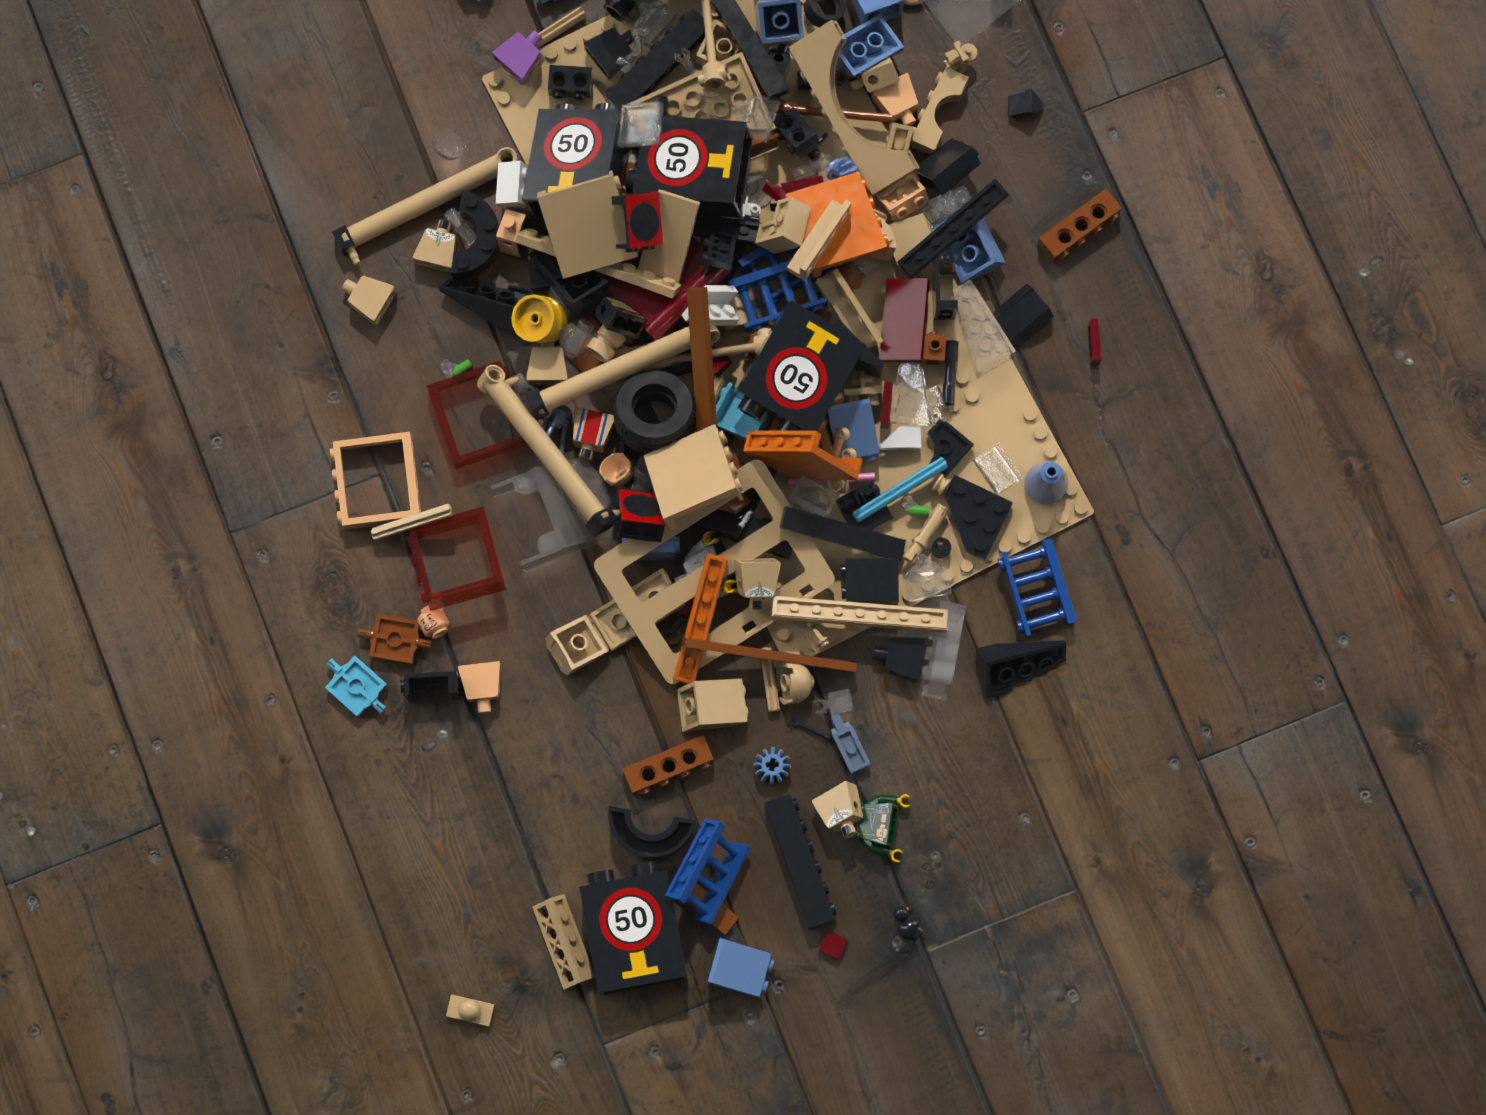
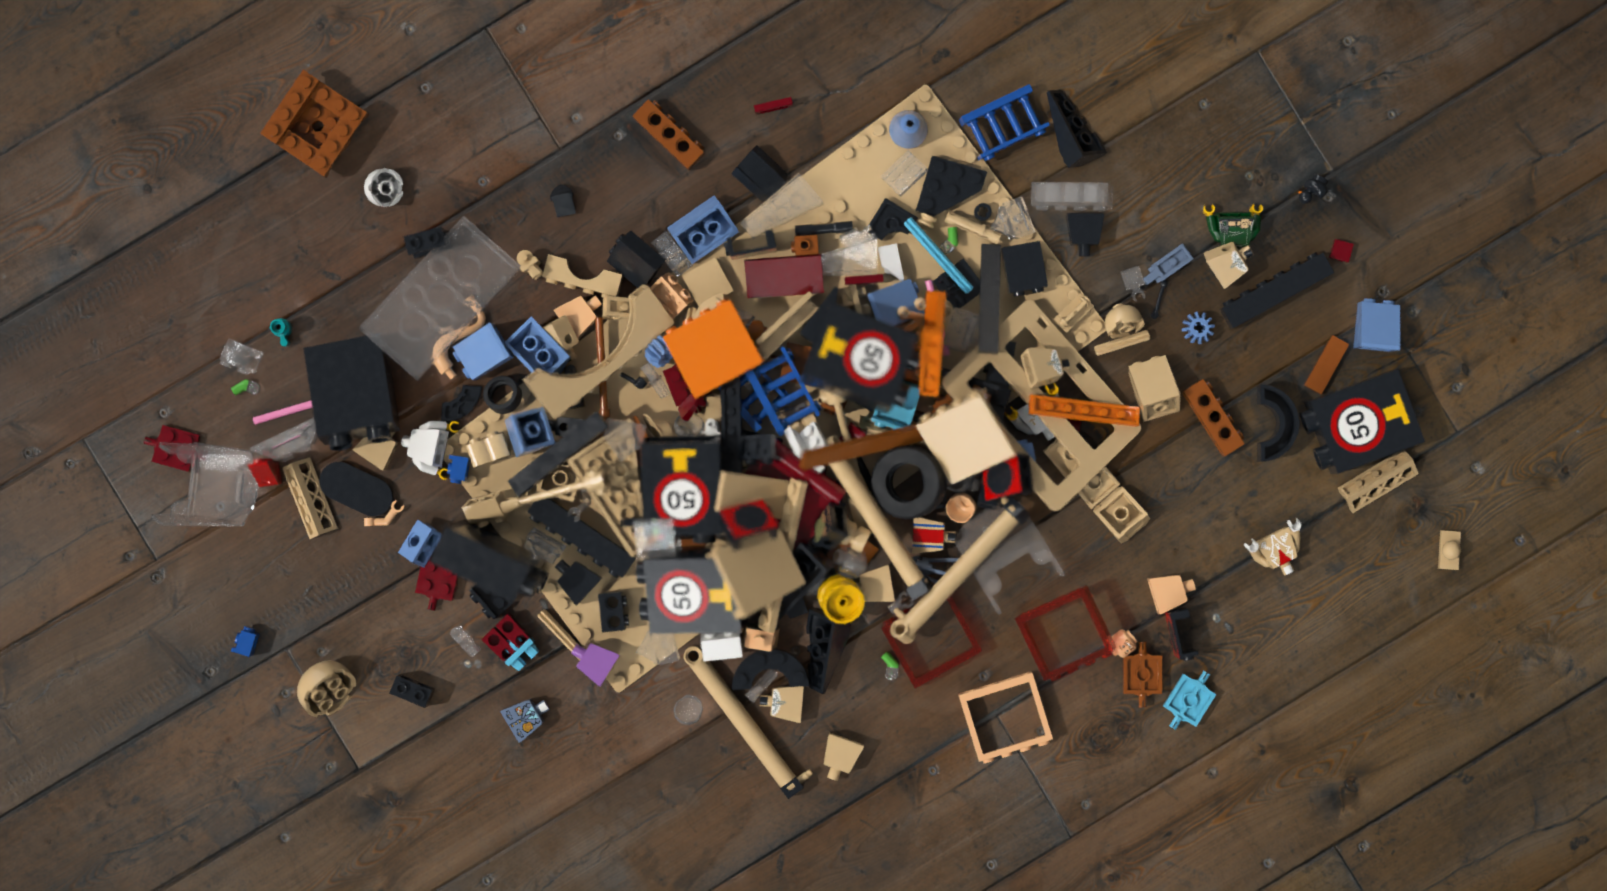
camera: 100 degrees left, 10 degrees up
(411, 522) = (1040, 678): tan axle -> none
(507, 811) = (1278, 548): none -> tan torso
(520, 125) = (659, 648): none -> clear slope
(638, 35) = (588, 563): clear arm -> none
(693, 864) = (1301, 378): blue fence -> none
(769, 654) = (1105, 345): dark orange tile -> none
(786, 228) = (725, 391): tan panel -> none
(798, 131) = (626, 397): black brick -> none
(819, 239) = (734, 361): tan fence -> none
(859, 614) = (1057, 272): tan tile -> none
(953, 228) = (695, 245): black tile -> none

